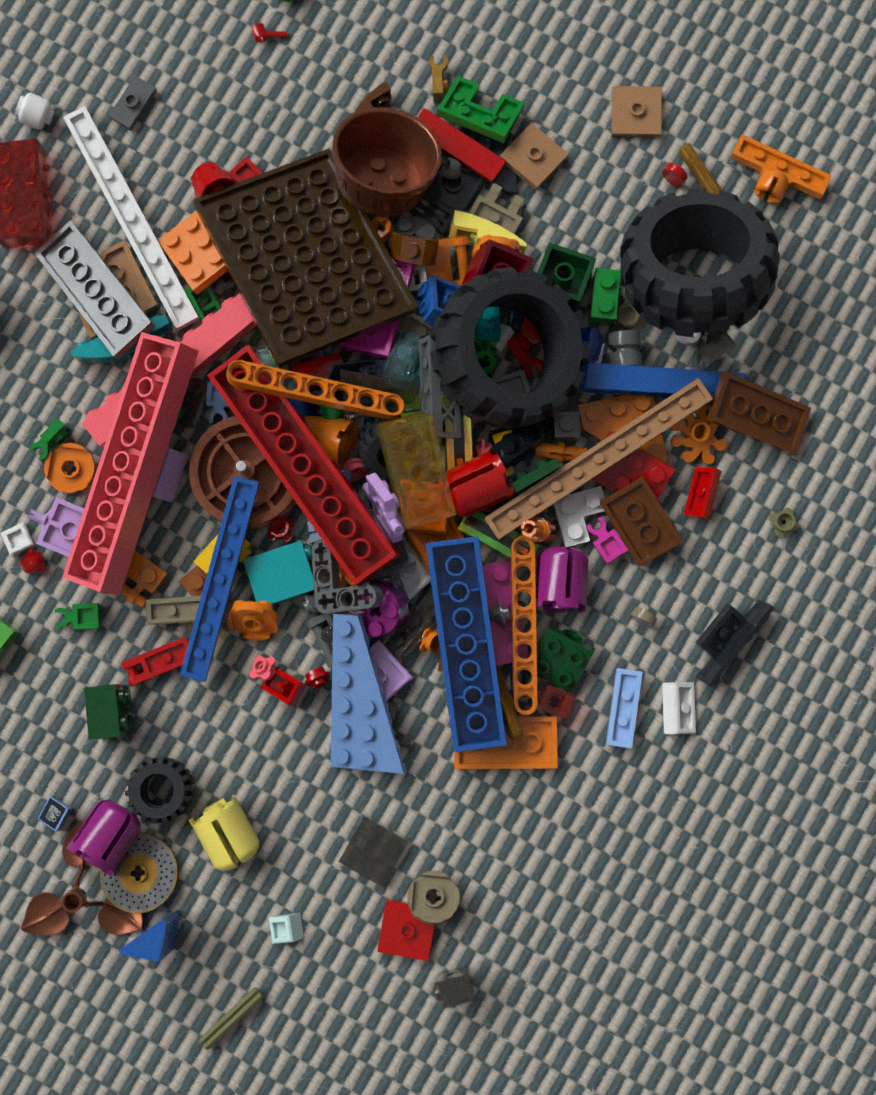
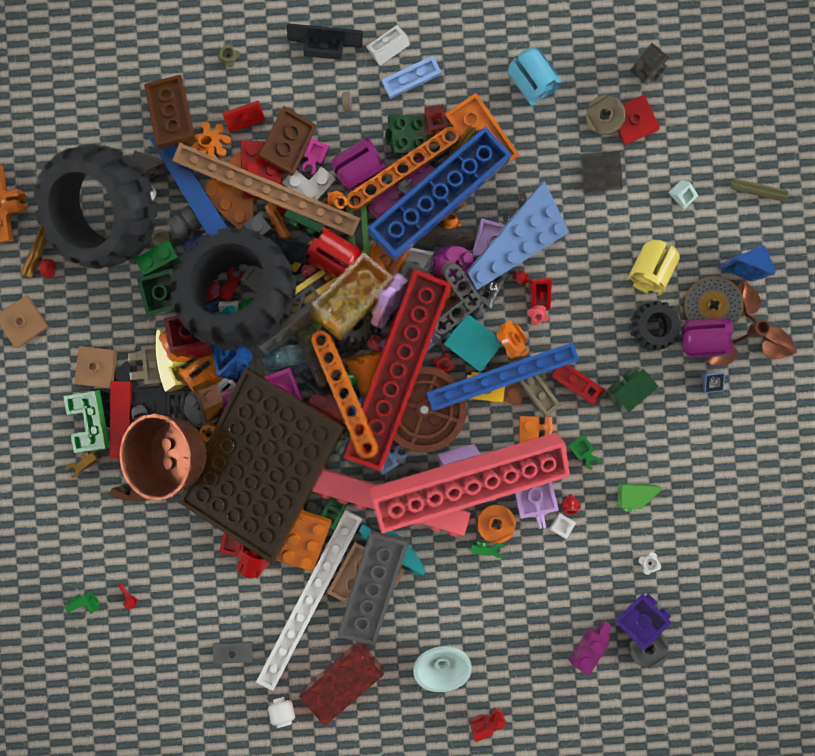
camera: 130 degrees left, 5 degrees up
(531, 845) = (533, 75): none -> medium azure cylinder

